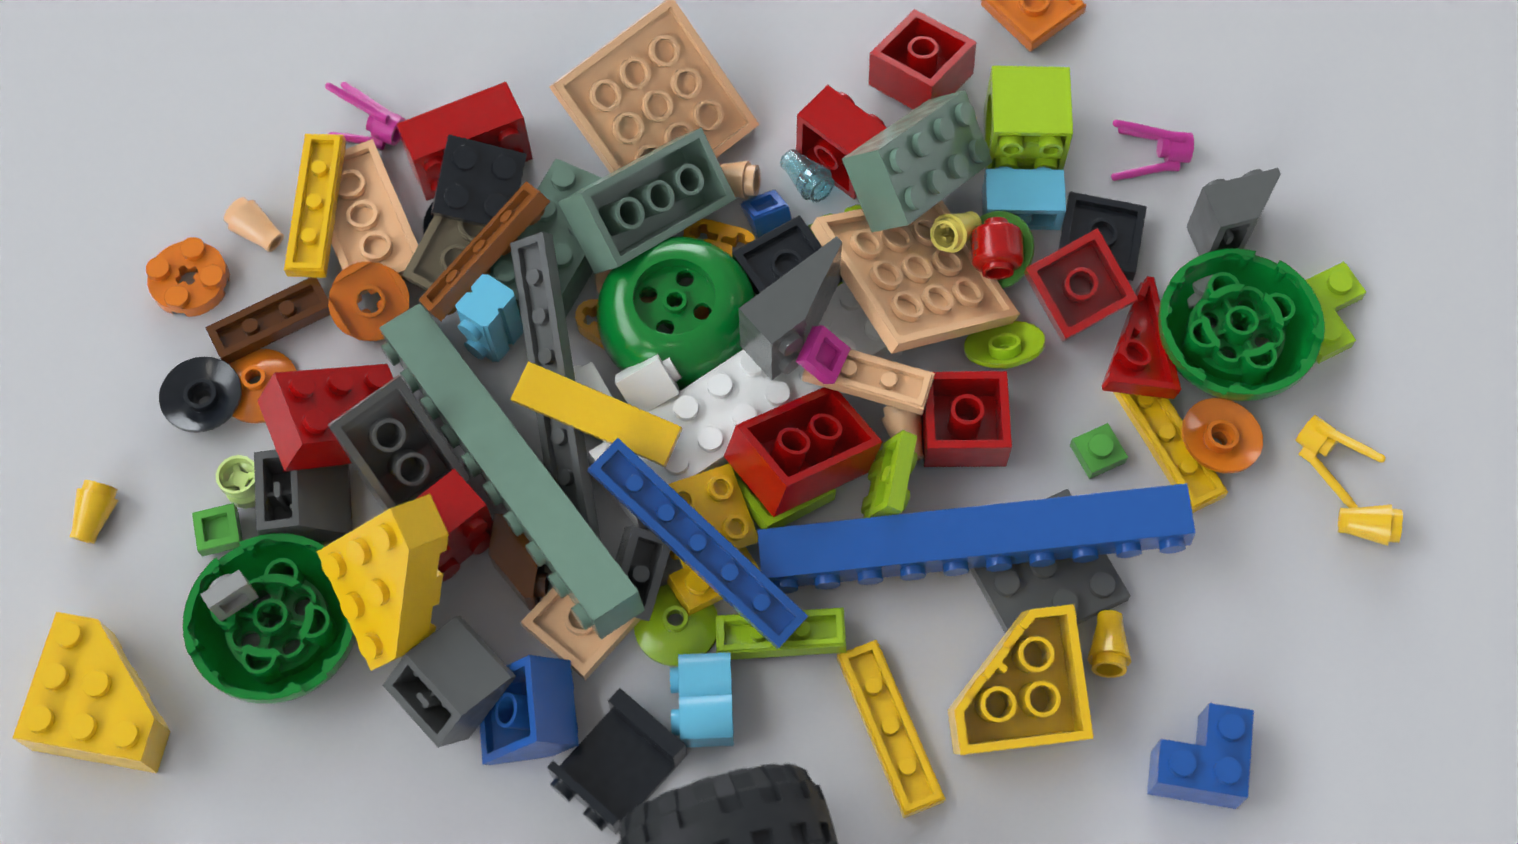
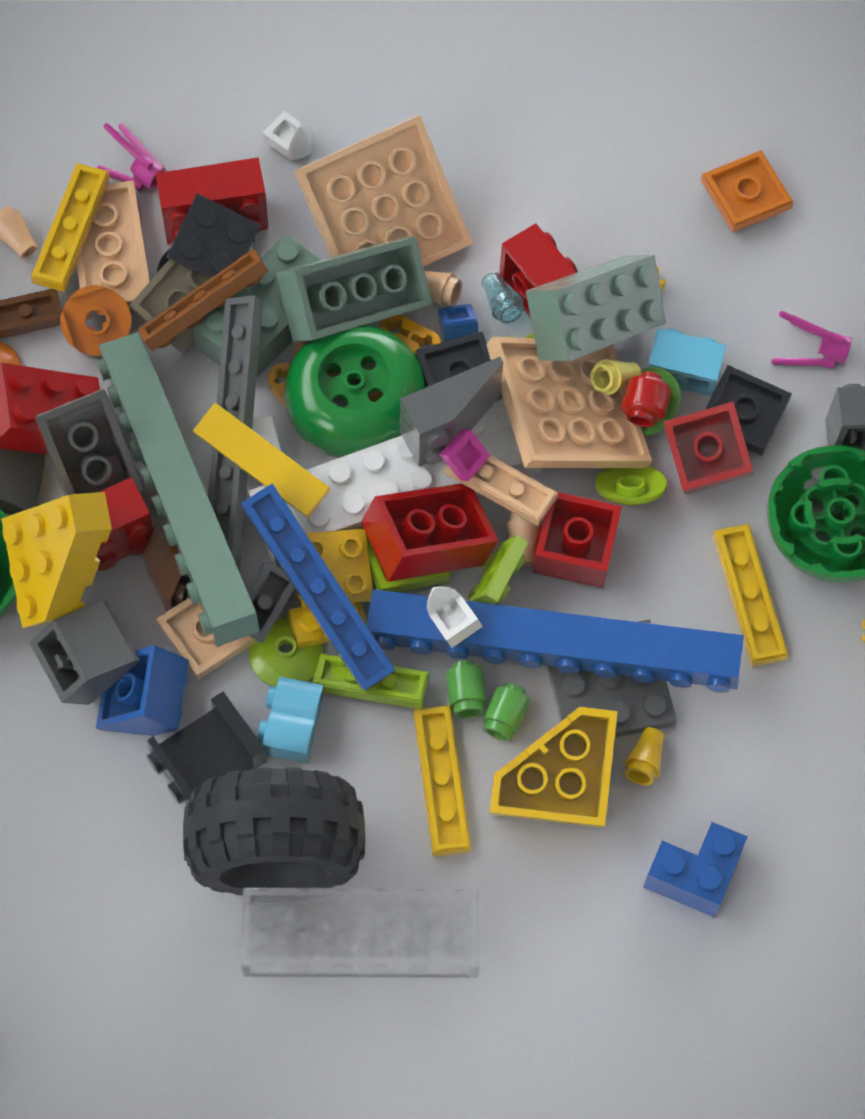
camera: 10 degrees right, 0 degrees up
(489, 319) = (193, 359): medium azure brick -> none
(531, 55) = (289, 136): none -> white plate
(648, 383) = (314, 445): white brick -> none
(857, 539) = (451, 615): none -> white plate
(890, 617) = (466, 689): none -> bright green brick
(921, 61) = (629, 219): red brick -> none
(941, 631) = (506, 711): none -> bright green brick
(1028, 117) = (707, 291): lime brick -> none
(1098, 451) = (687, 594): bright green plate -> none
(1139, 358) = (744, 523): red wing -> none
(1231, 425) = (802, 594): orange dish -> none

